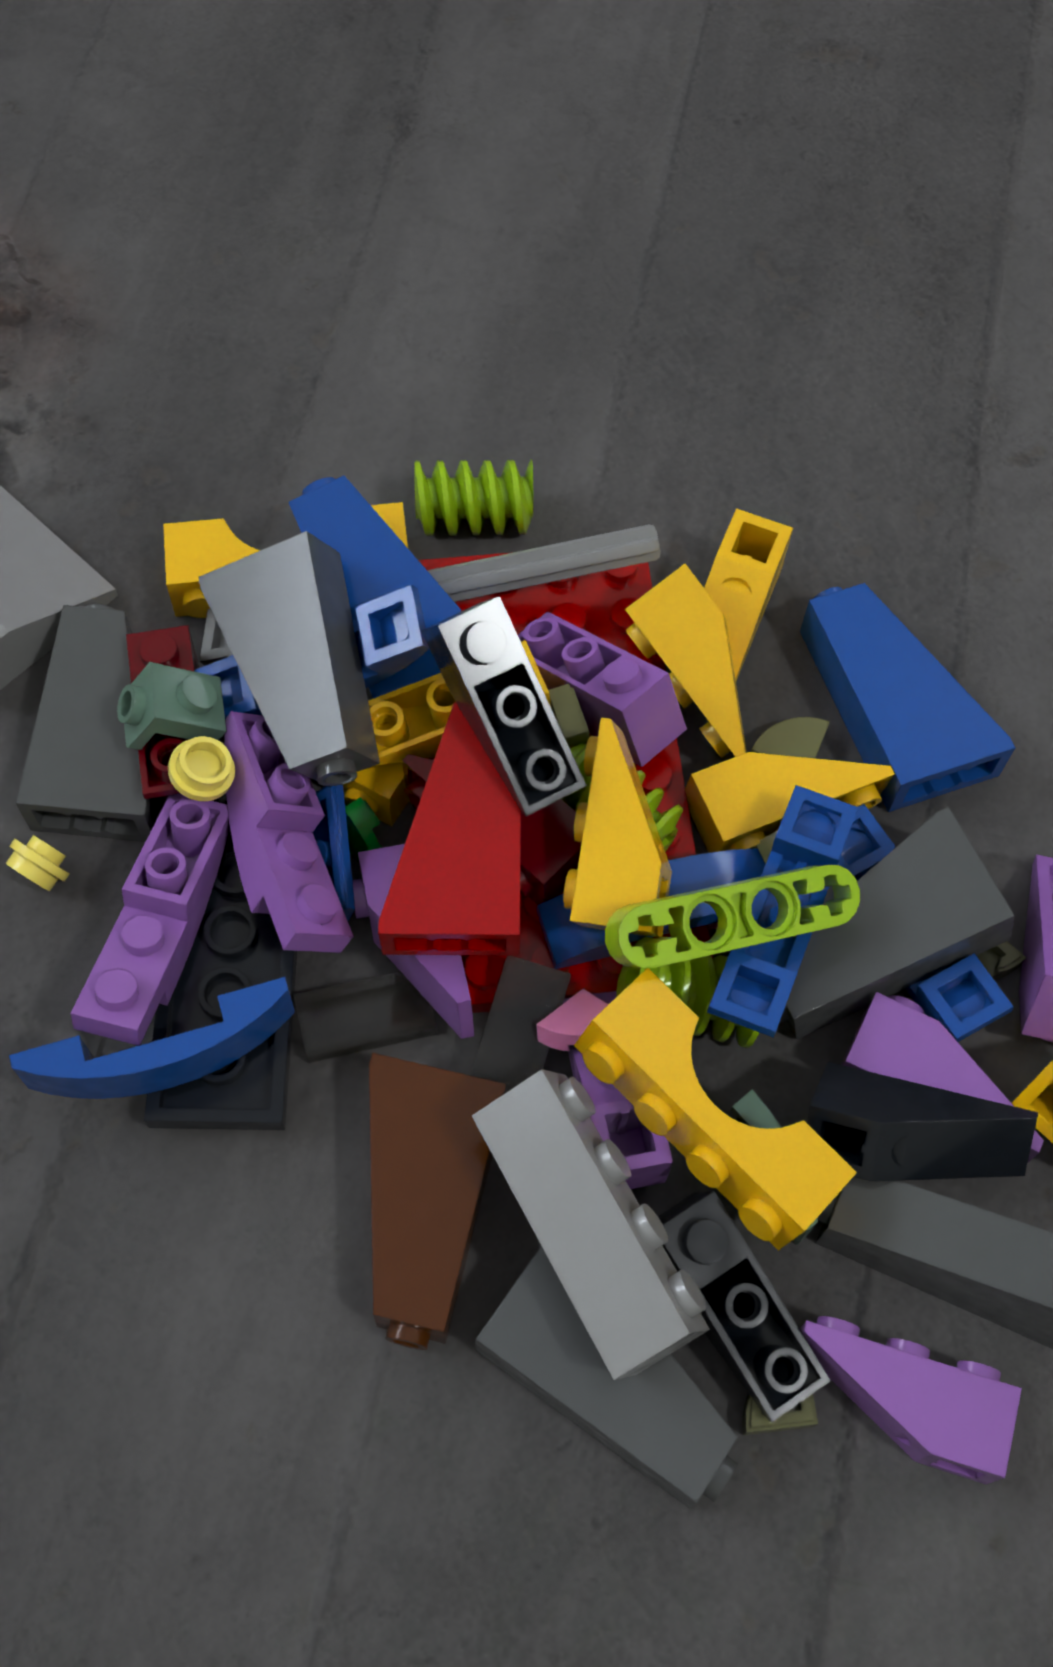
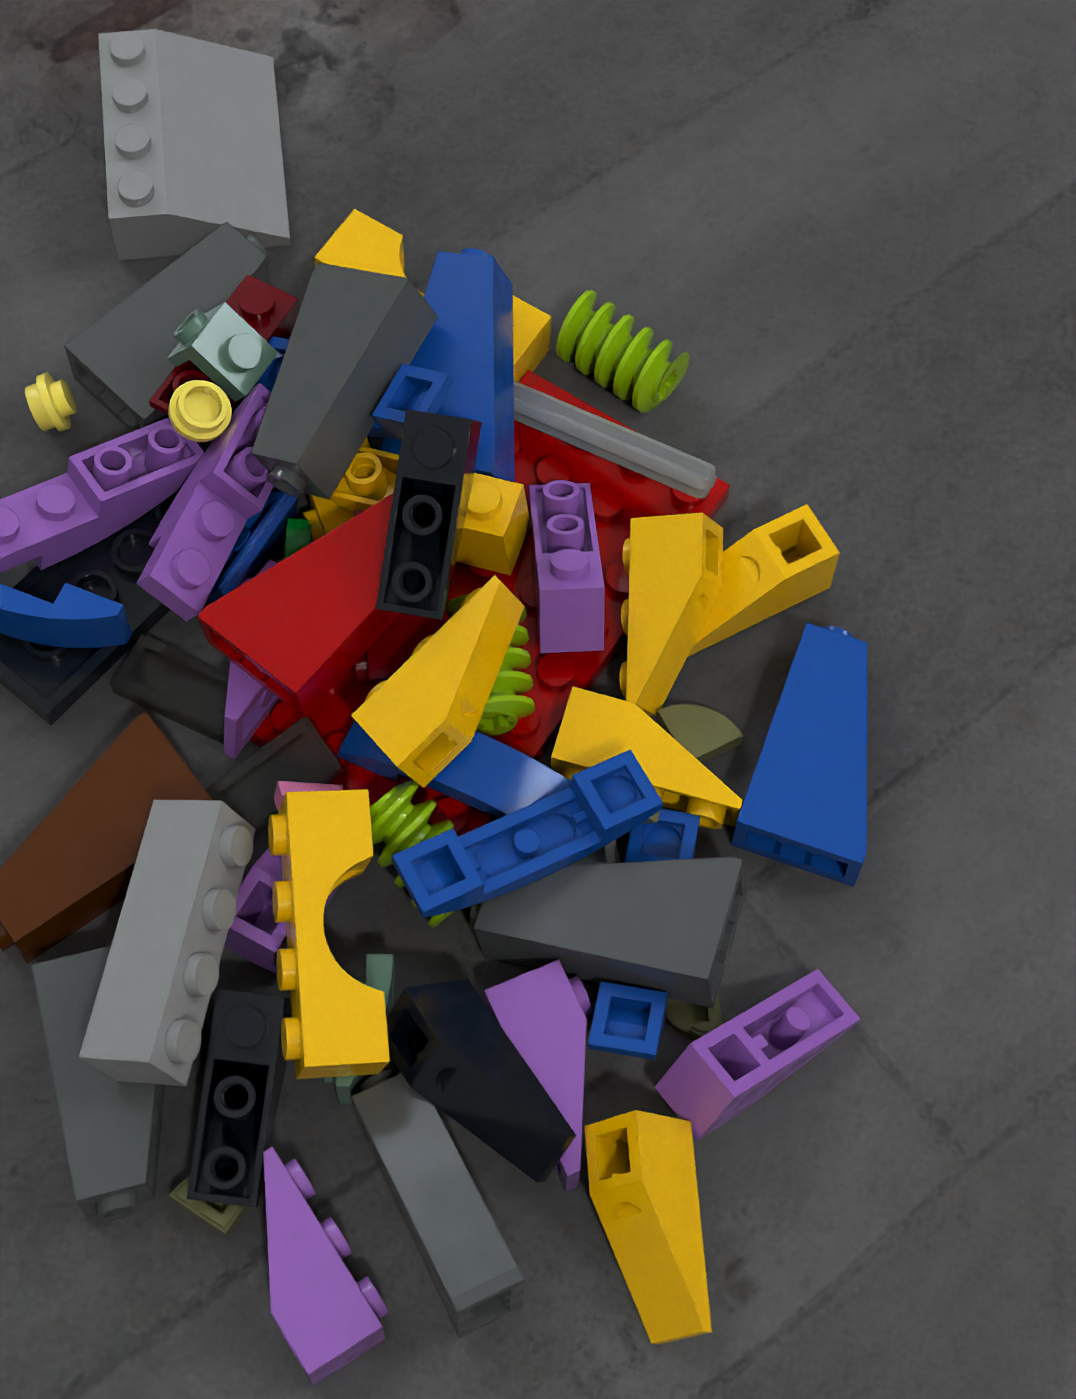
camera: 40 degrees right, 0 degrees up
(569, 715) = (515, 568): olive tile -> none
(734, 914) = (468, 811): lime beam -> none

